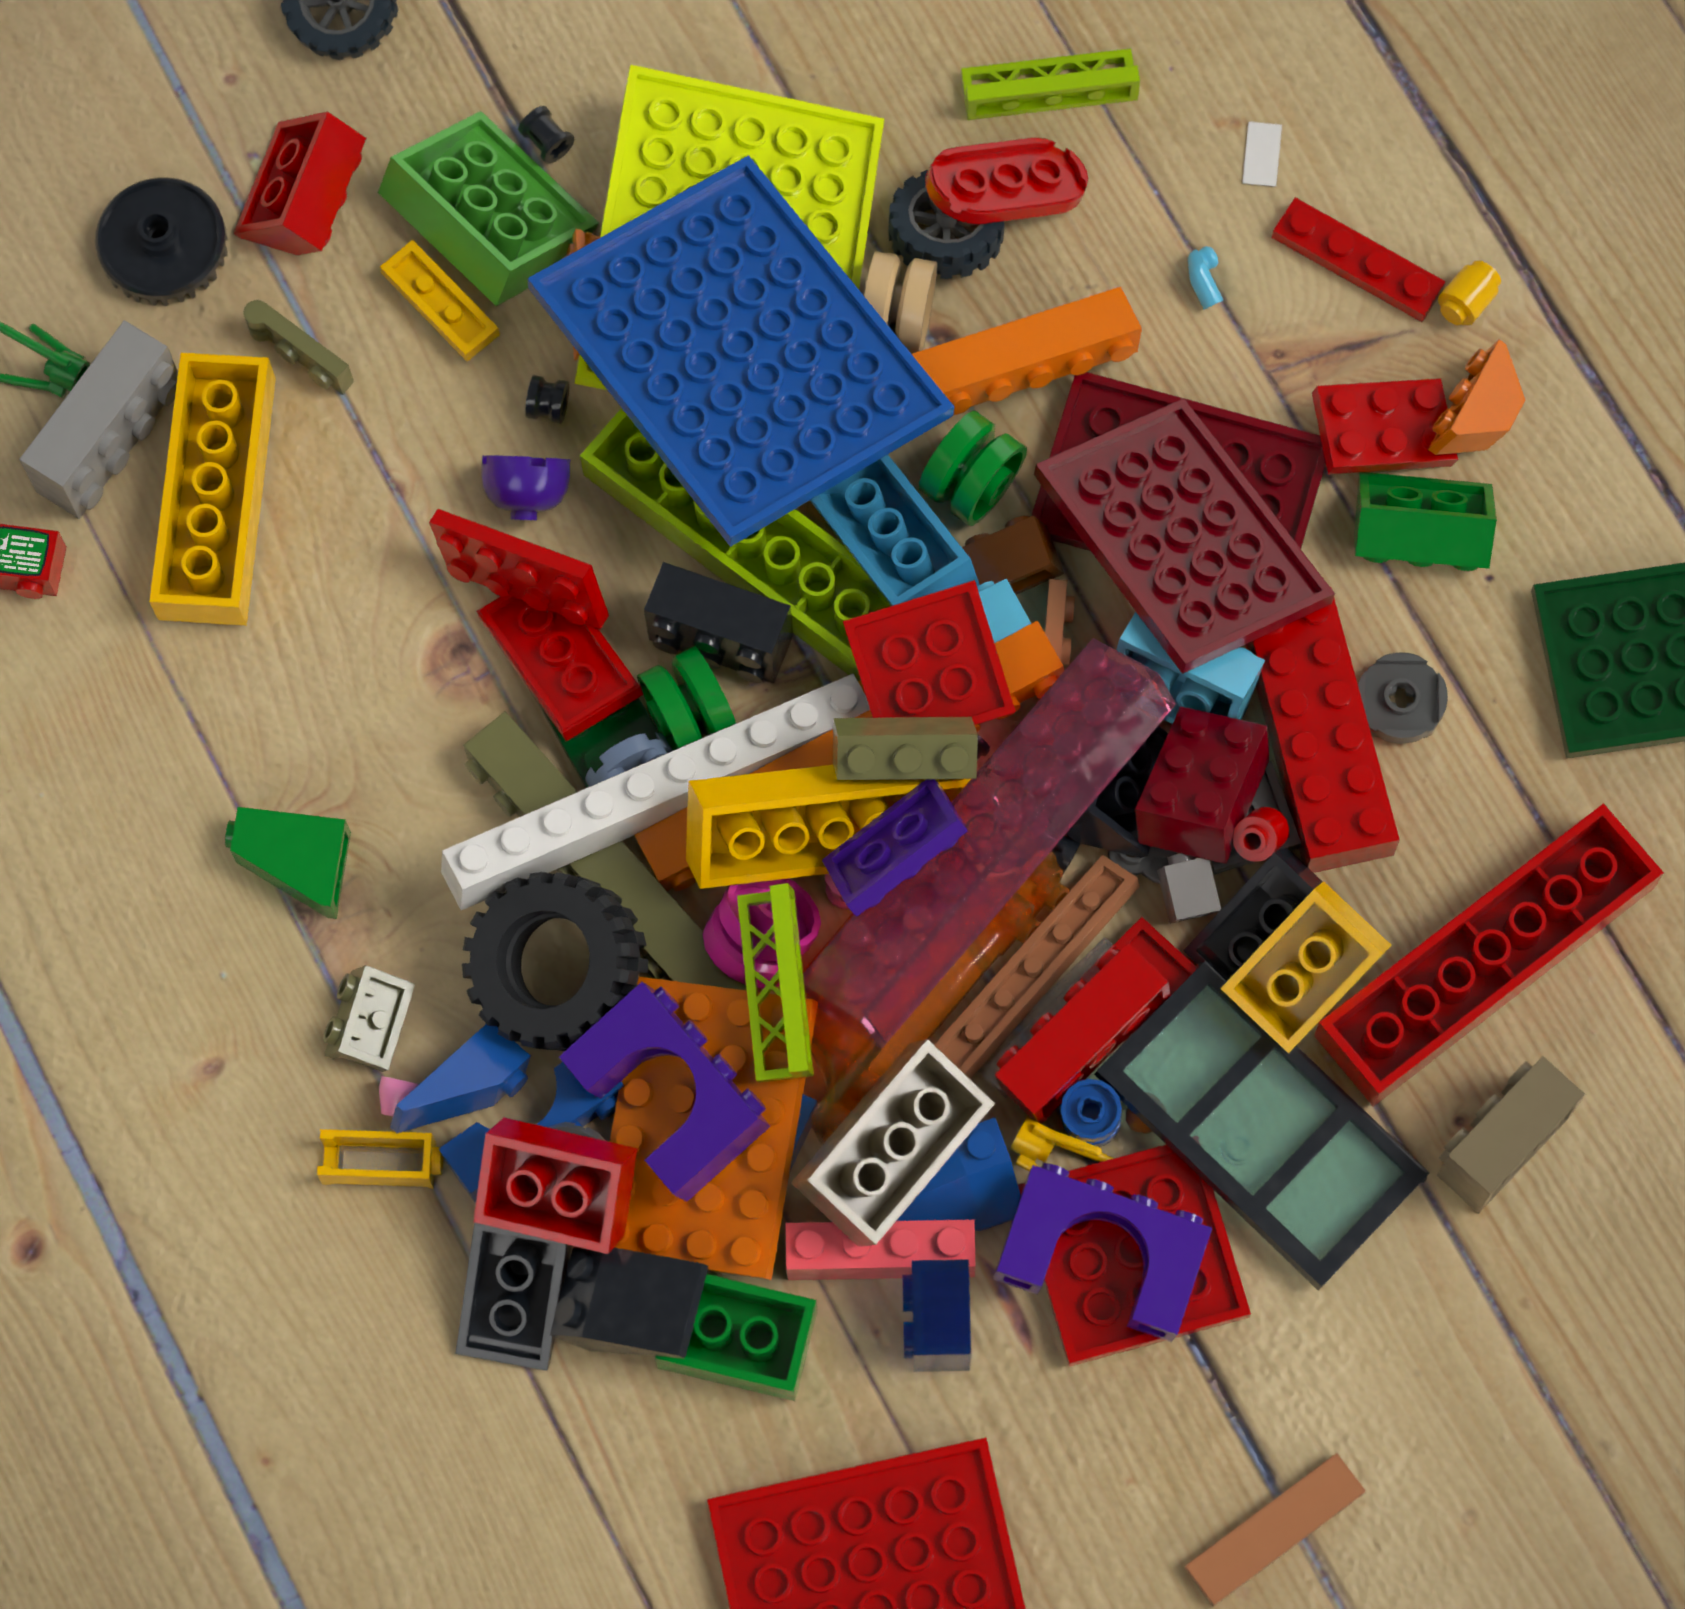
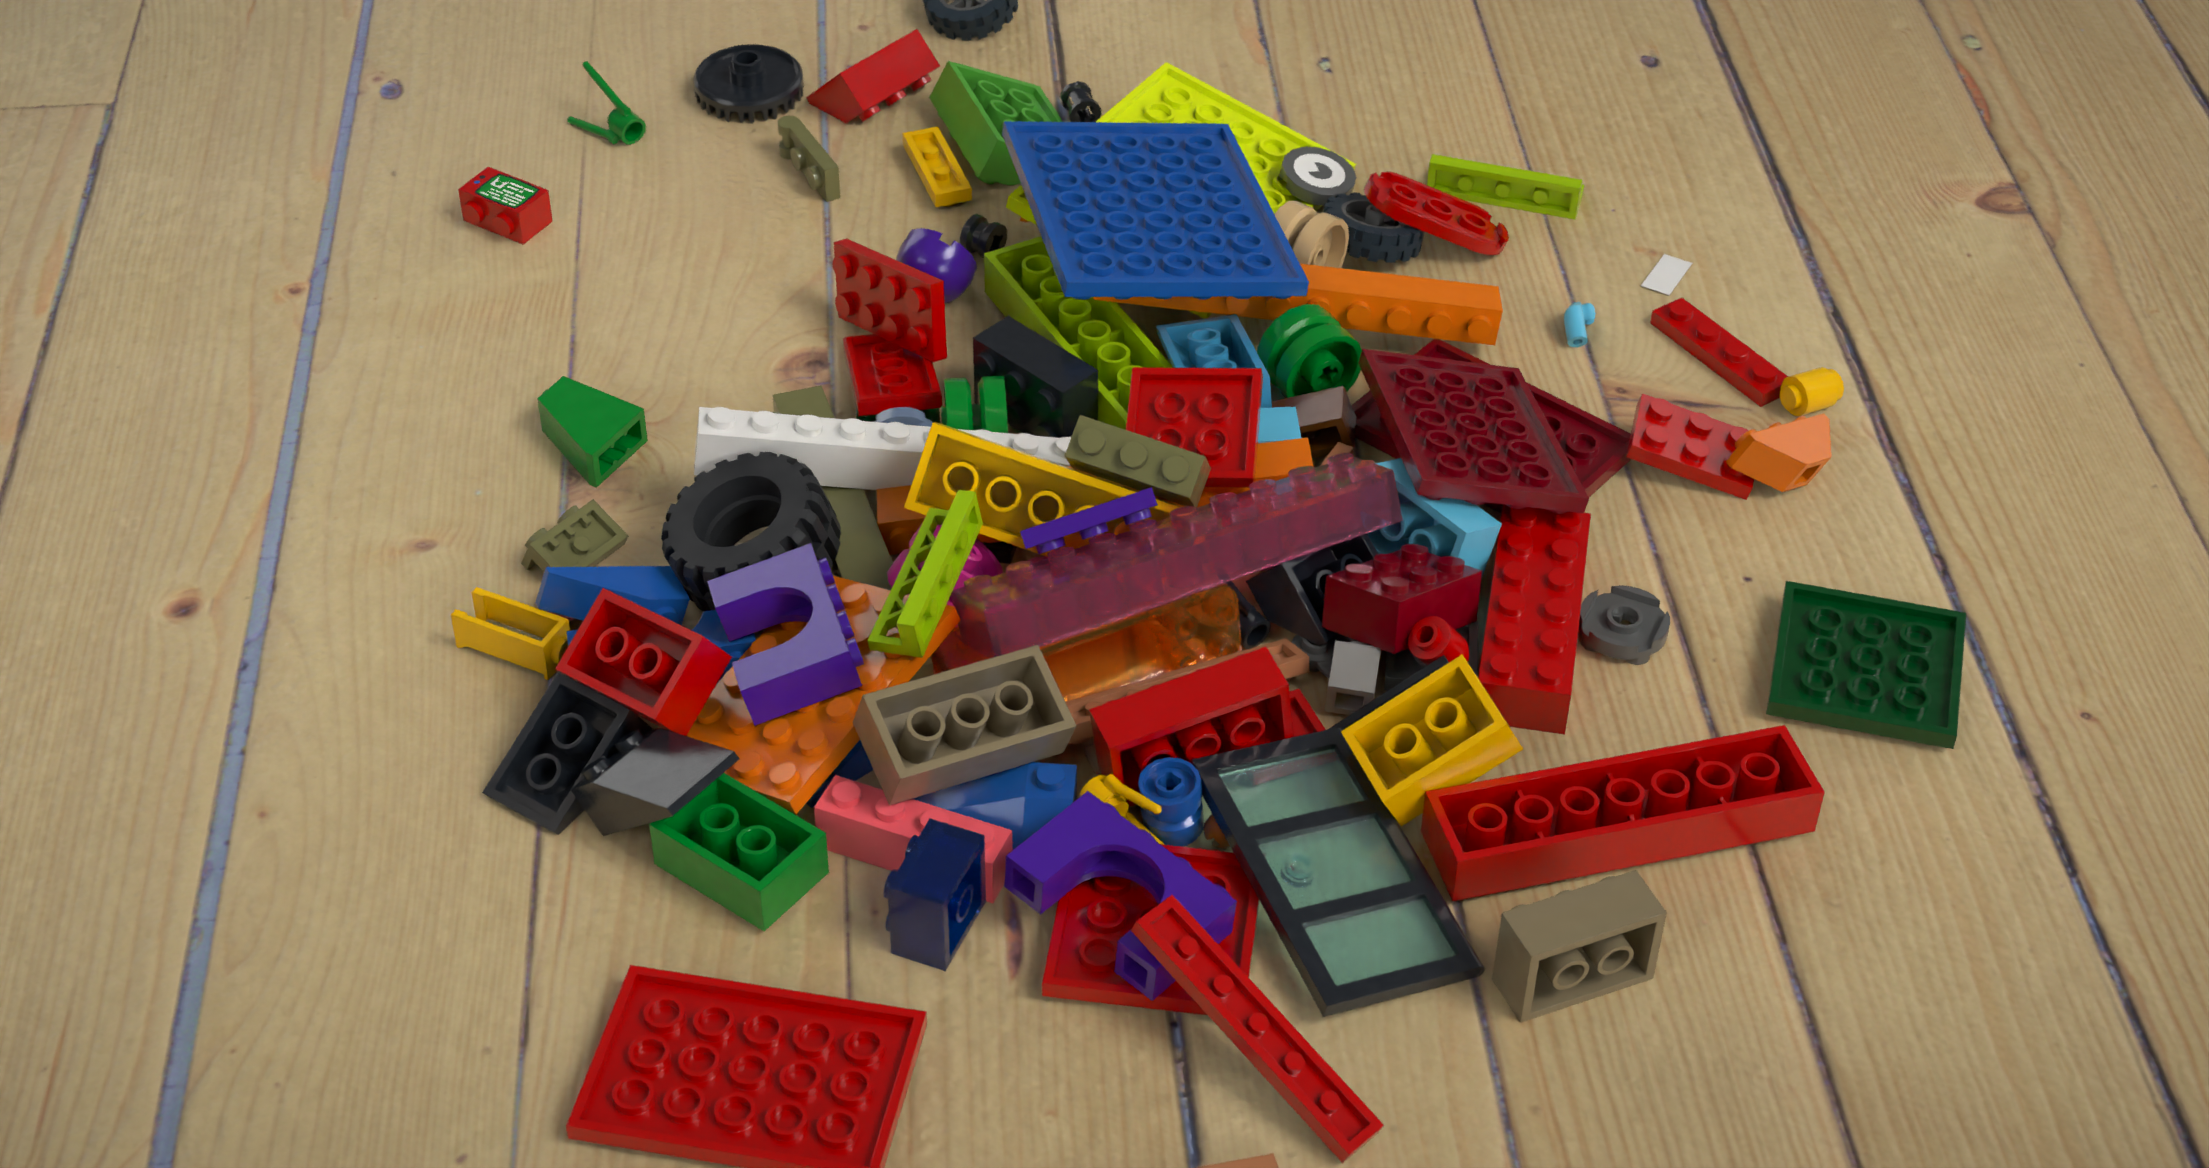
camera: 20 degrees right, 30 degrees down
(101, 420) = (627, 143): light grey brick -> none
(213, 489) = (682, 207): yellow brick -> none
(859, 168) = (1316, 174): none -> dark grey tile
(1280, 1350) = (1257, 1028): none -> red plate
(1424, 521) = (1699, 515): green slope -> none

